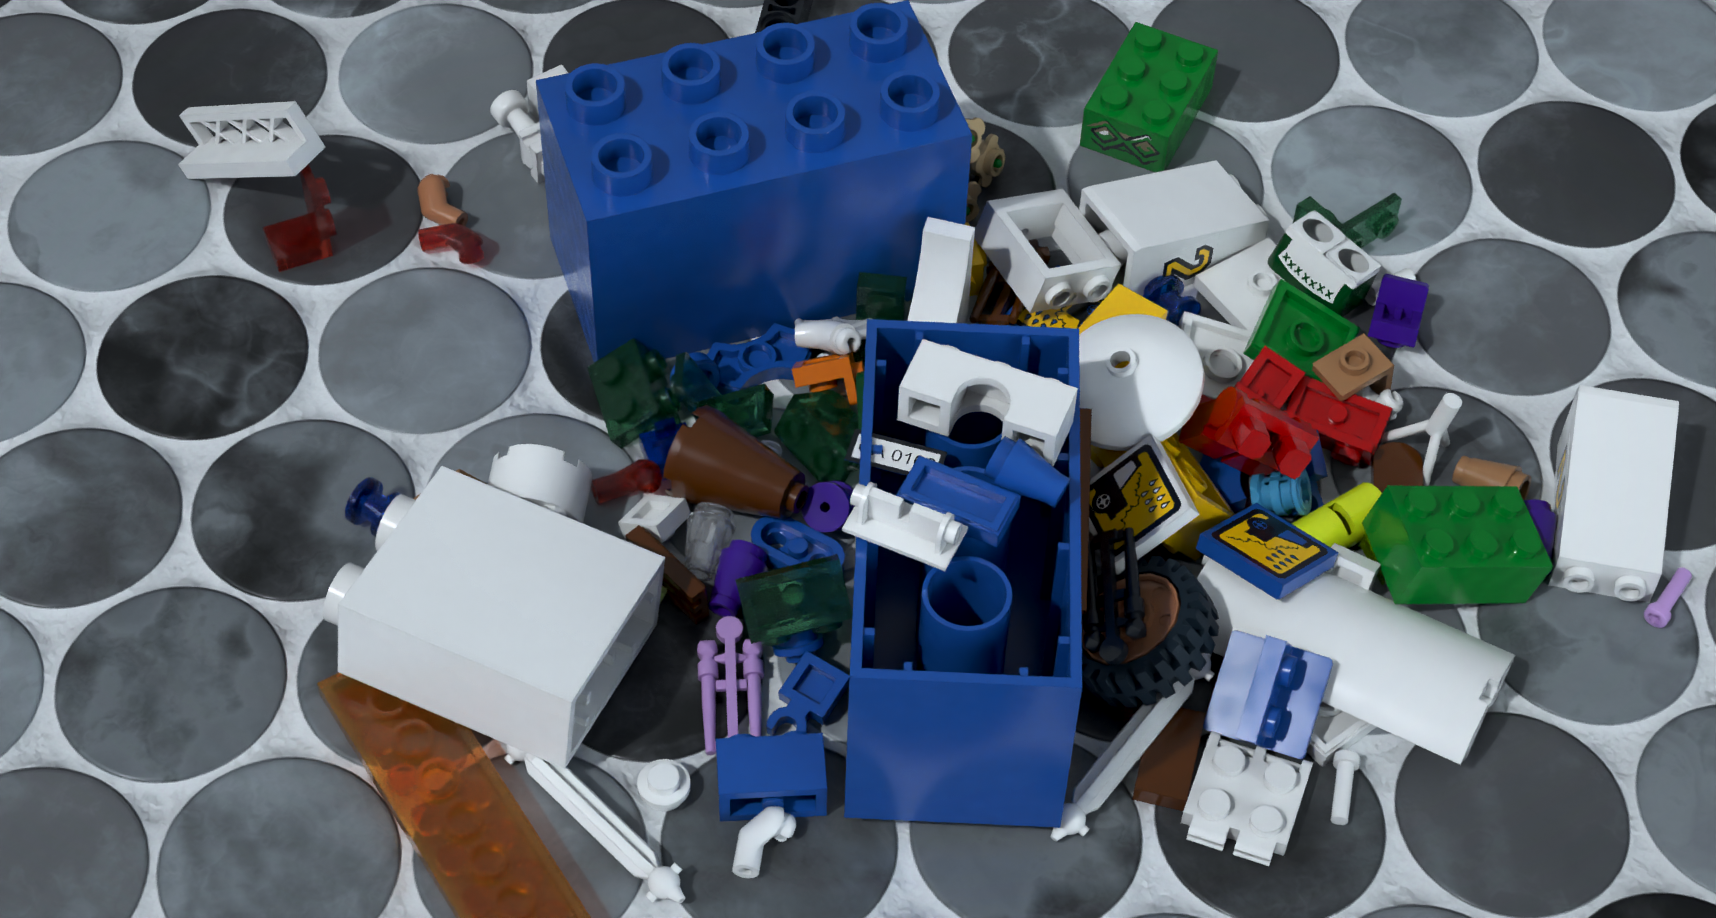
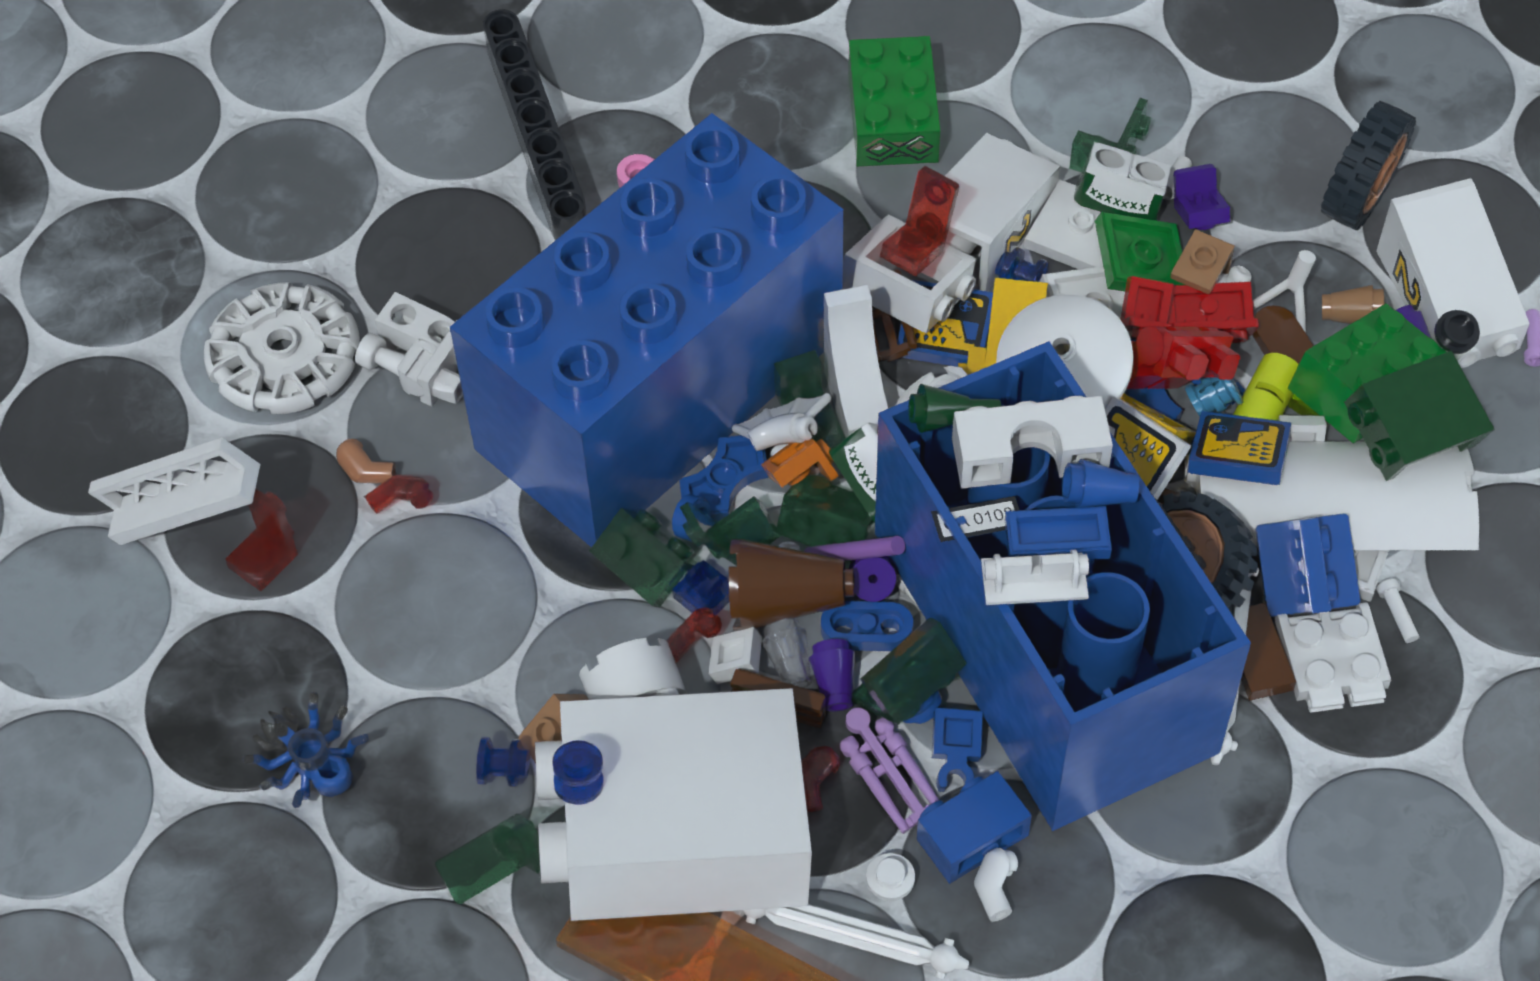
camera: 25 degrees left, 5 degrees up
(216, 422) = (308, 751): none -> animal
(295, 585) = (490, 858): none -> clear green bracket
(403, 526) = (578, 772): none -> clear blue wheel
(430, 44) = (281, 368): none -> white plate
(653, 654) = (815, 769): none -> arm
(826, 471) = (861, 549): none -> medium lavender bar
(913, 326) = (935, 407): none -> dark green cone
(1077, 217) = (926, 225): none -> clear red bracket
(1466, 594) = (1418, 414): none -> dark green panel
(1572, 544) = (1457, 331): none -> black plate
(1583, 345) = (1368, 165): none -> black wheel

